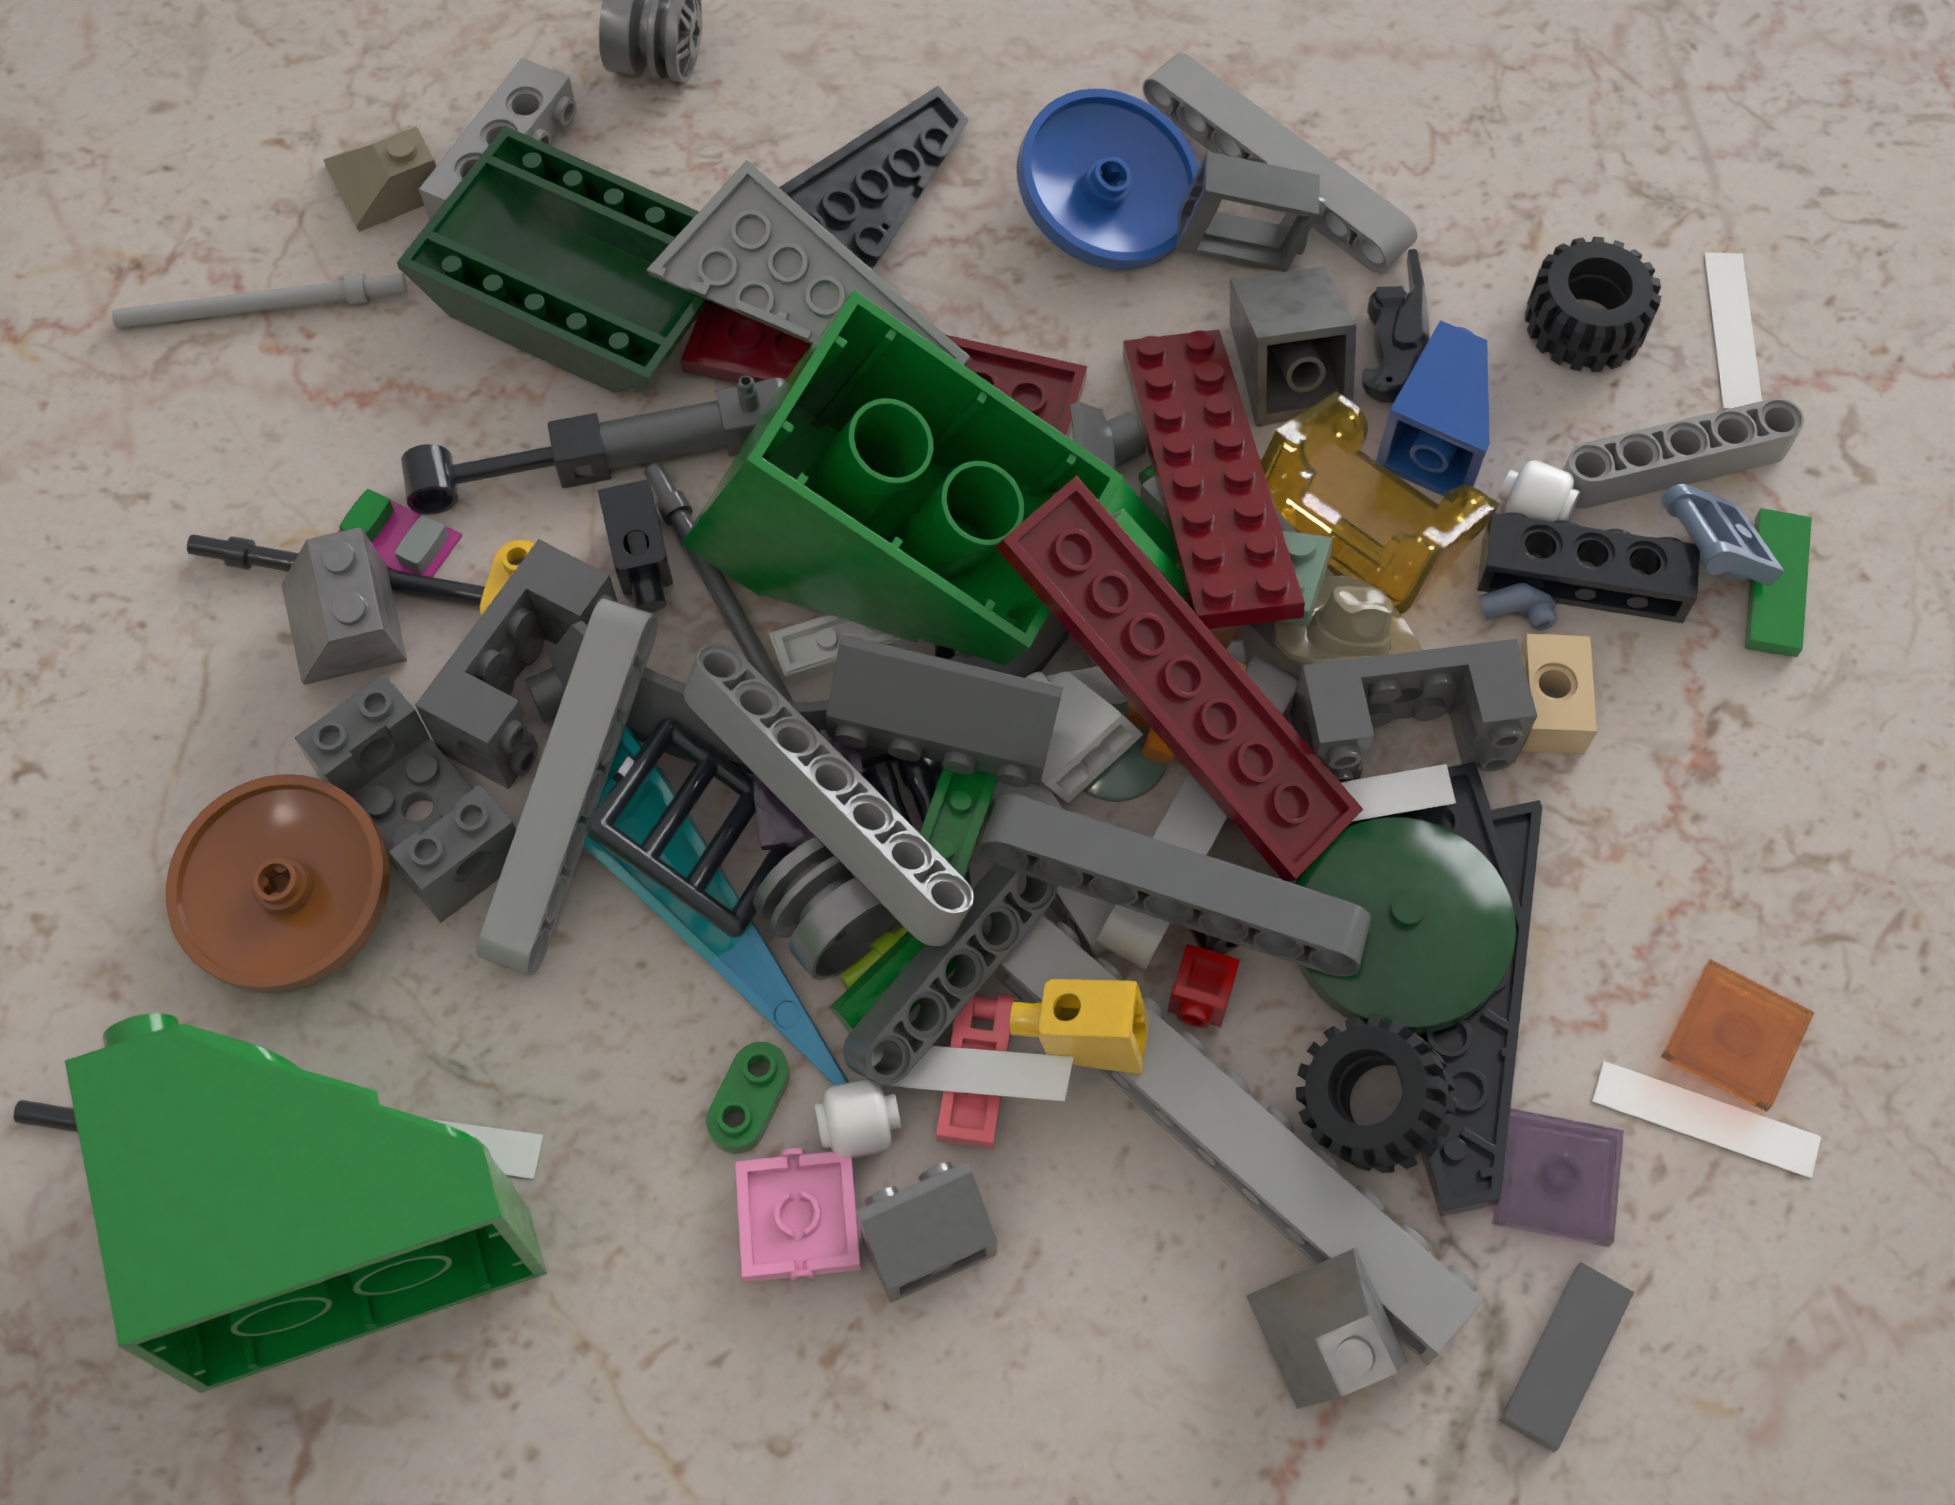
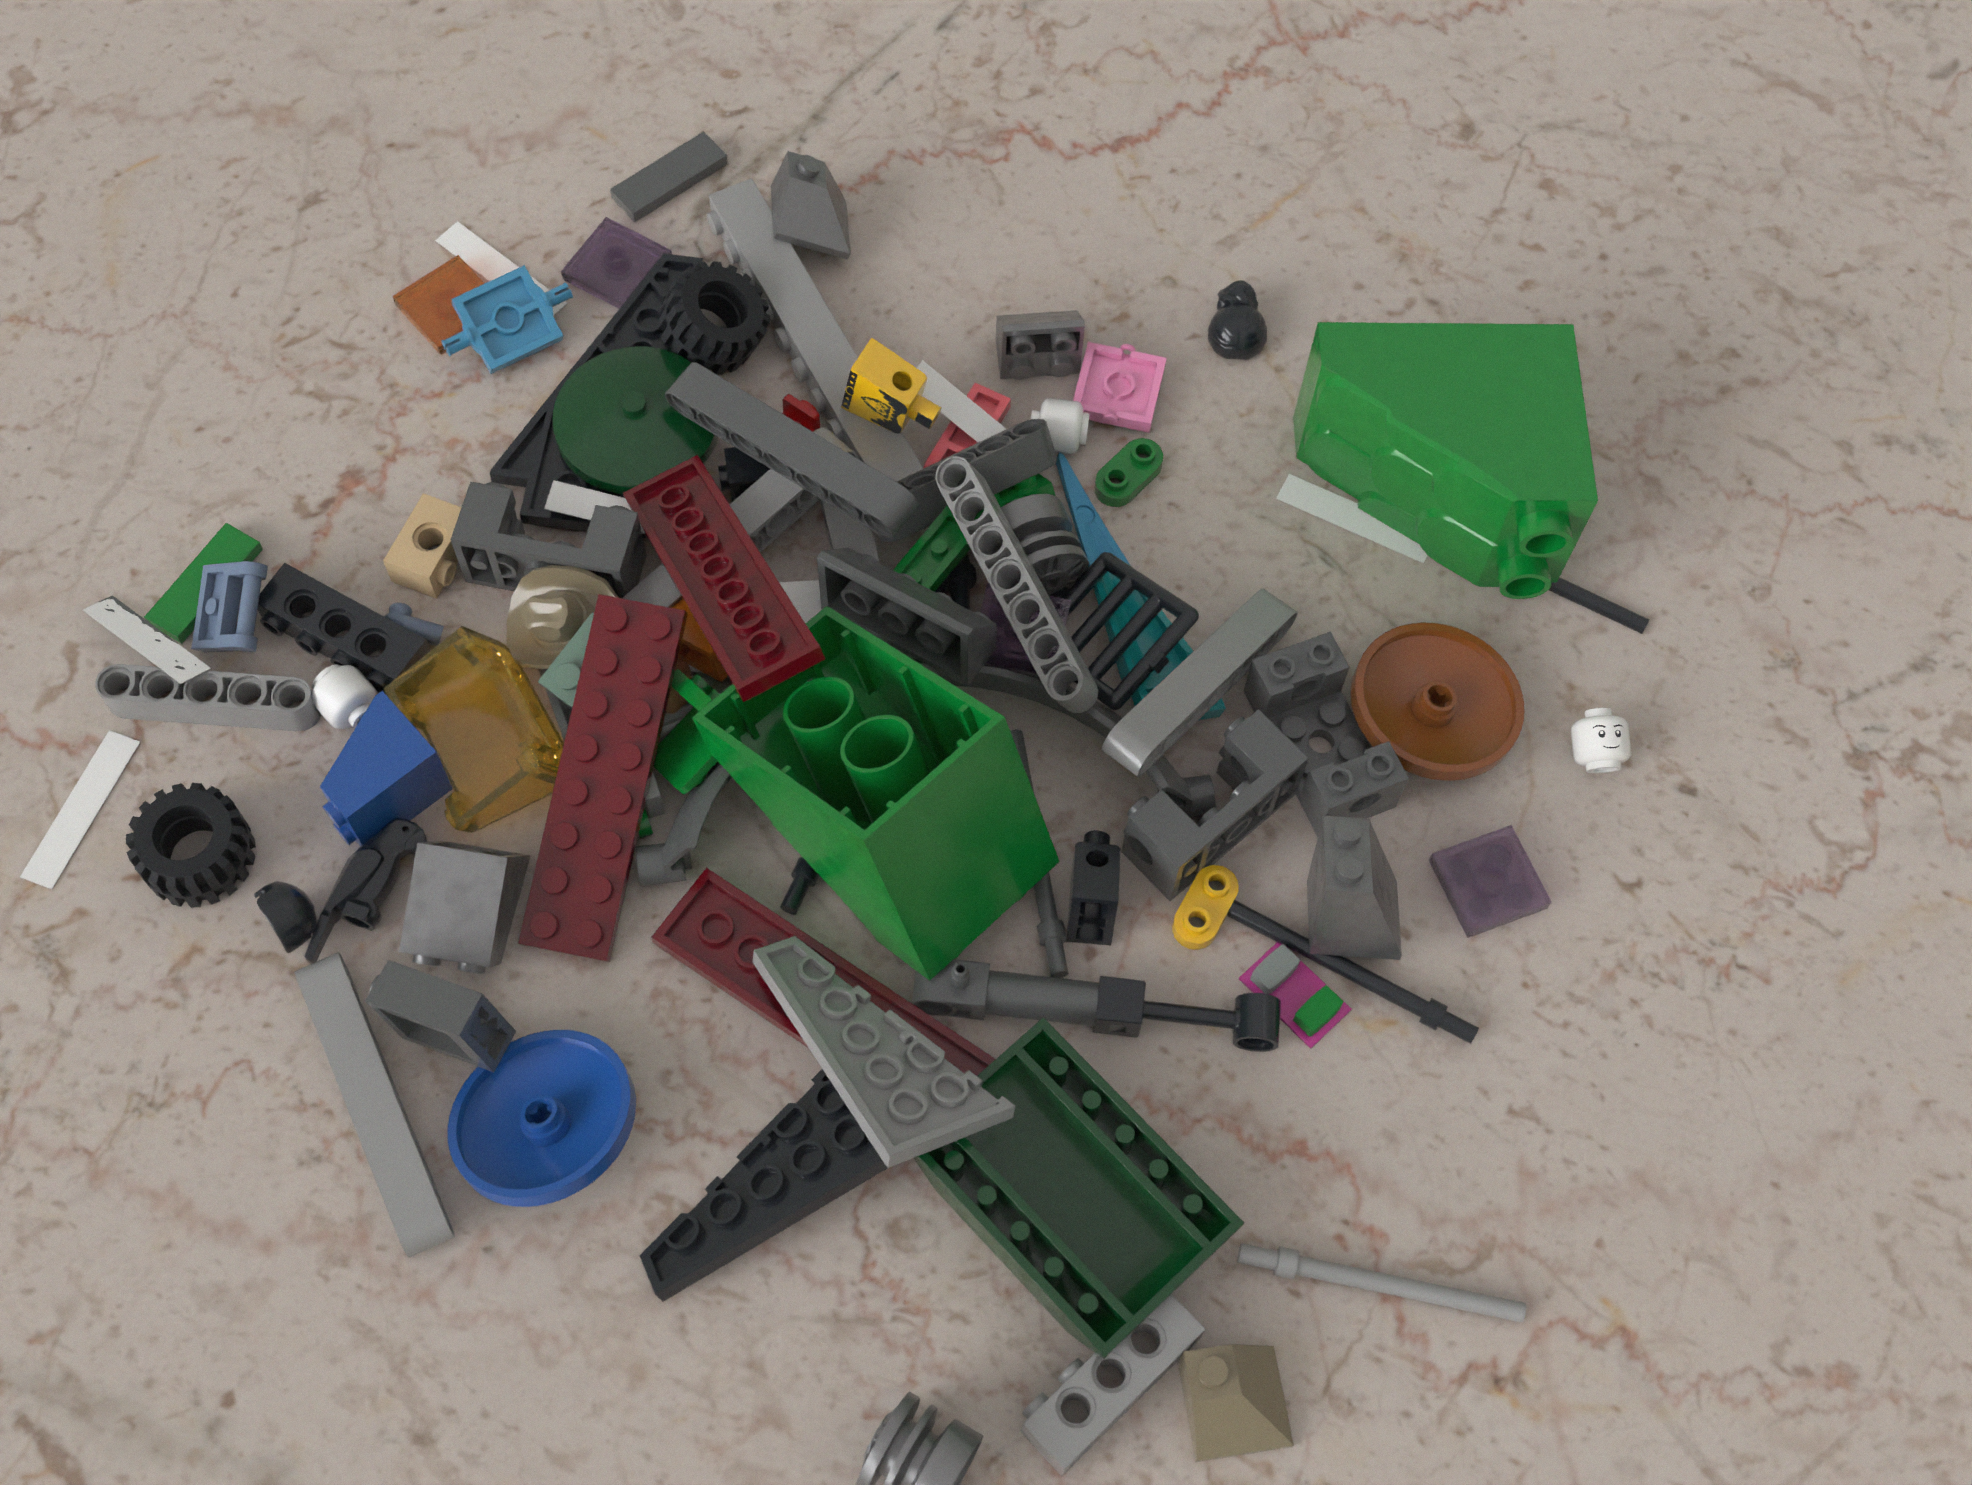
camera: 165 degrees left, 0 degrees up
(67, 909) = (1601, 741): none -> white head
(191, 706) = (1489, 881): none -> clear purple plate
(657, 1388) = (1237, 326): none -> black hair
(1456, 268) = (288, 913): none -> black hair
(1645, 1017) = (507, 319): none -> dark azure plate
(1788, 483) = (146, 639): none -> white sticker

